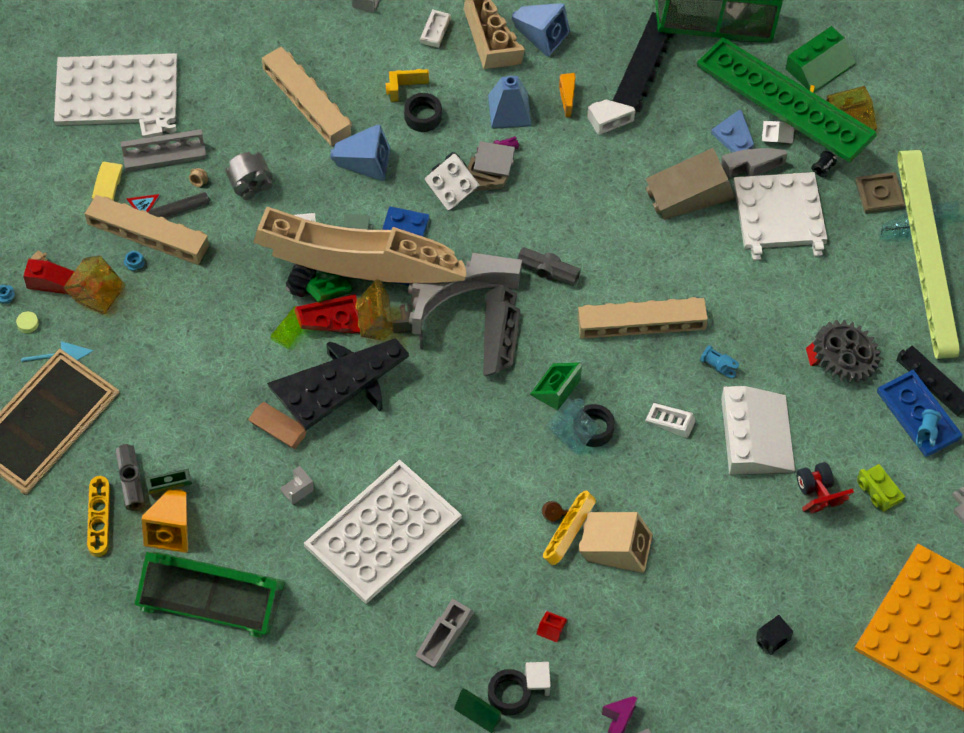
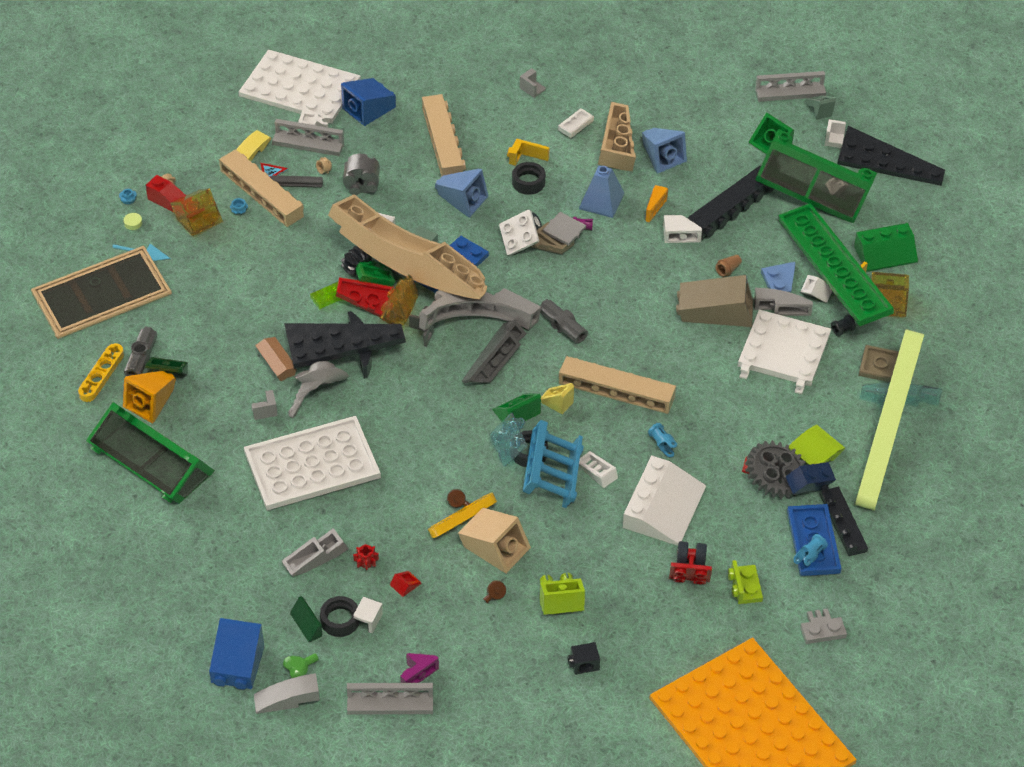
camera: 25 degrees right, 10 degrees down
(203, 82) = (366, 100): none -> blue slope
(334, 435) = (318, 374): none -> light grey hat
(496, 619) = (366, 556): none -> red gear
(591, 355) = (559, 397): none -> light yellow slope
(615, 441) = (536, 465): none -> dark azure fence
(647, 597) = (495, 590): none -> reddish brown piece
(677, 138) = (727, 265): none -> medium nougat cone
(717, 577) = (561, 595): none -> lime brick
(869, 310) = (816, 446): none -> lime slope
(887, 349) = (810, 478): none -> dark blue brick

